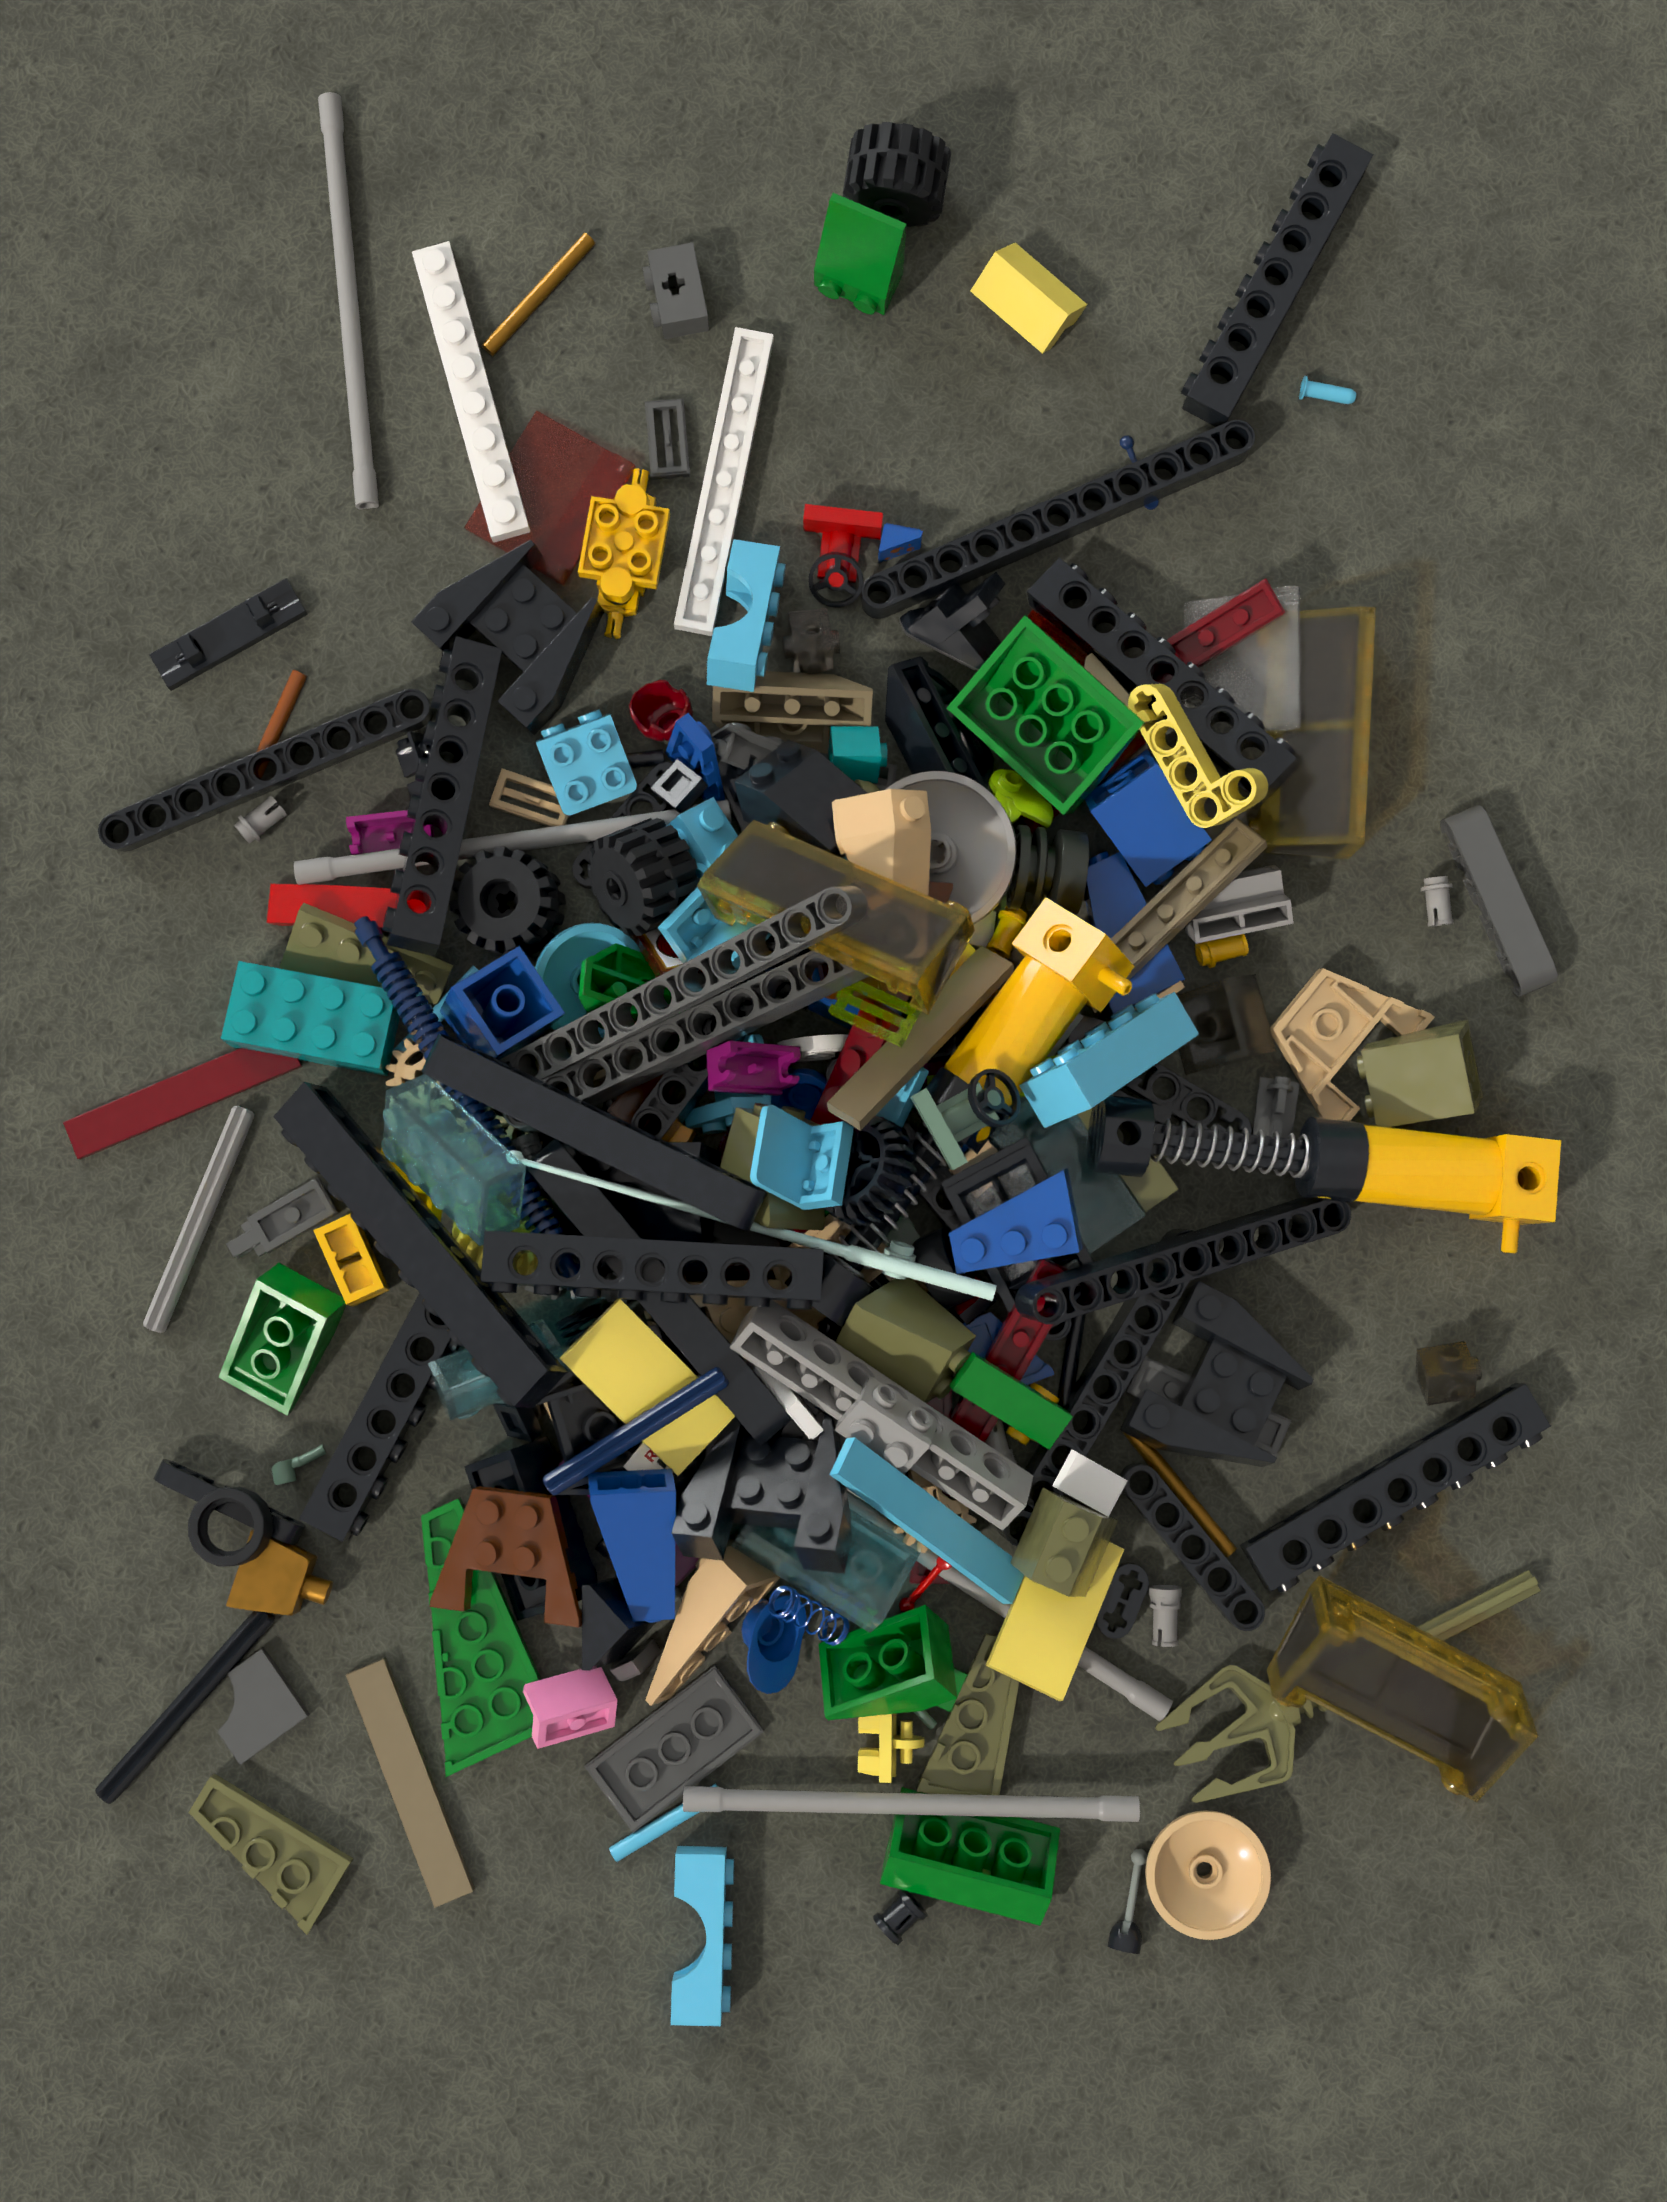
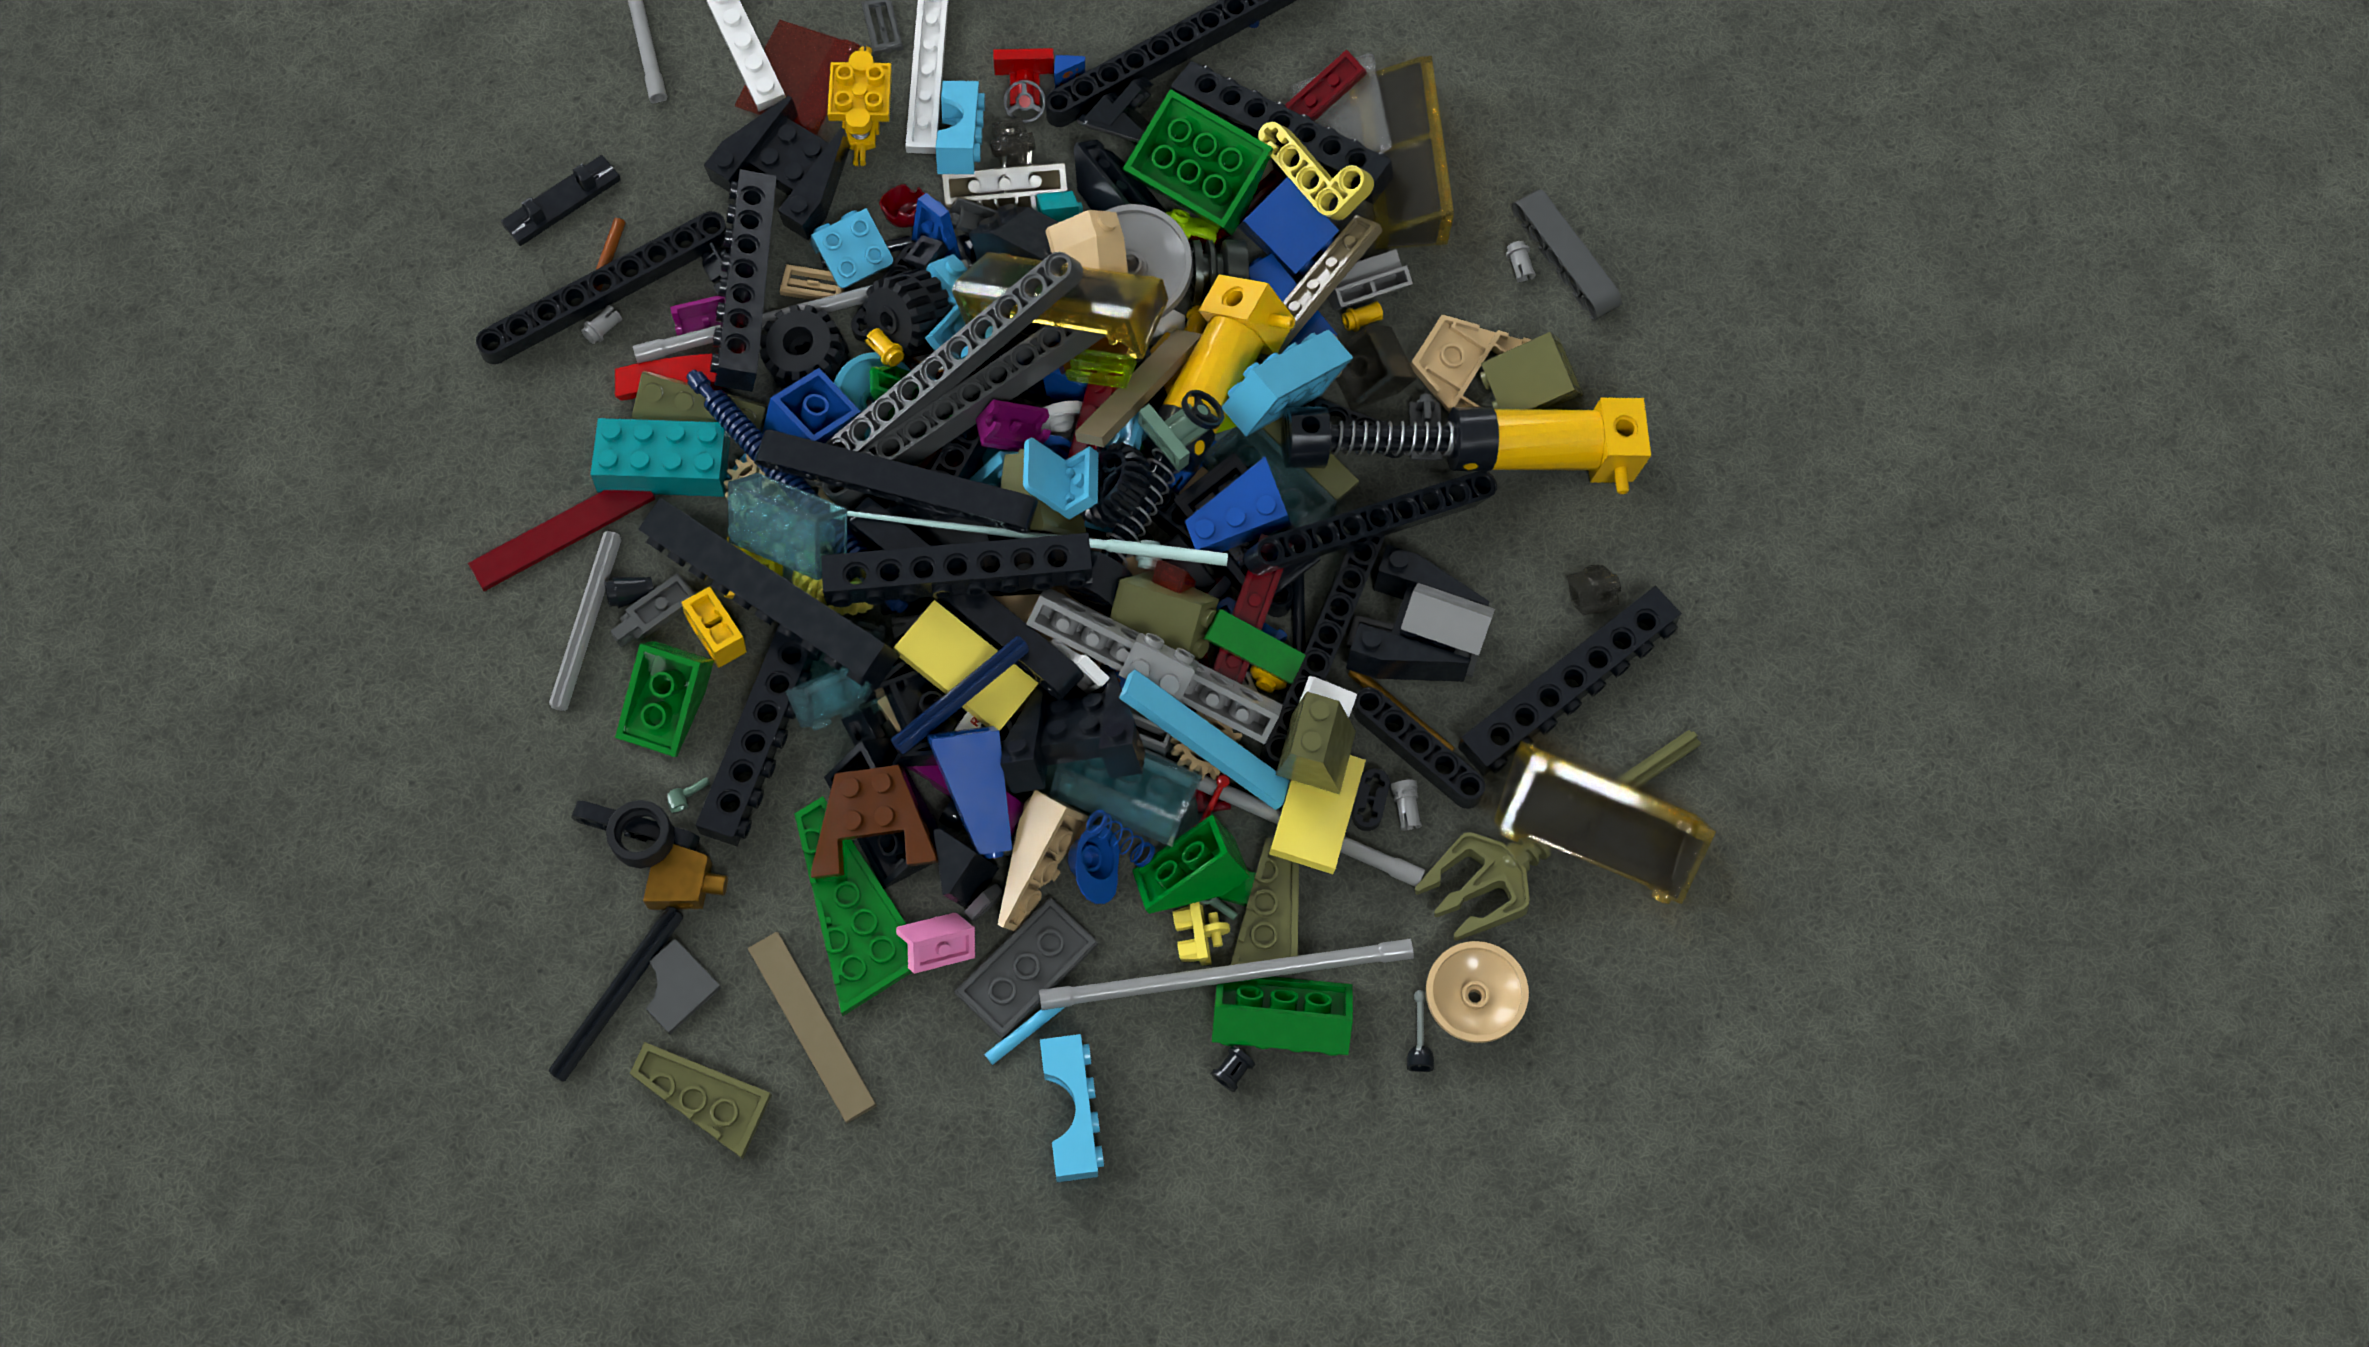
camera: 10 degrees left, 15 degrees down
(253, 1189) = (627, 590): none -> black cone
(612, 930) = (890, 352): none -> yellow pin
(922, 1304) = (1172, 577): none -> clear red slope
(1258, 1402) = (1447, 619): none -> light grey piece

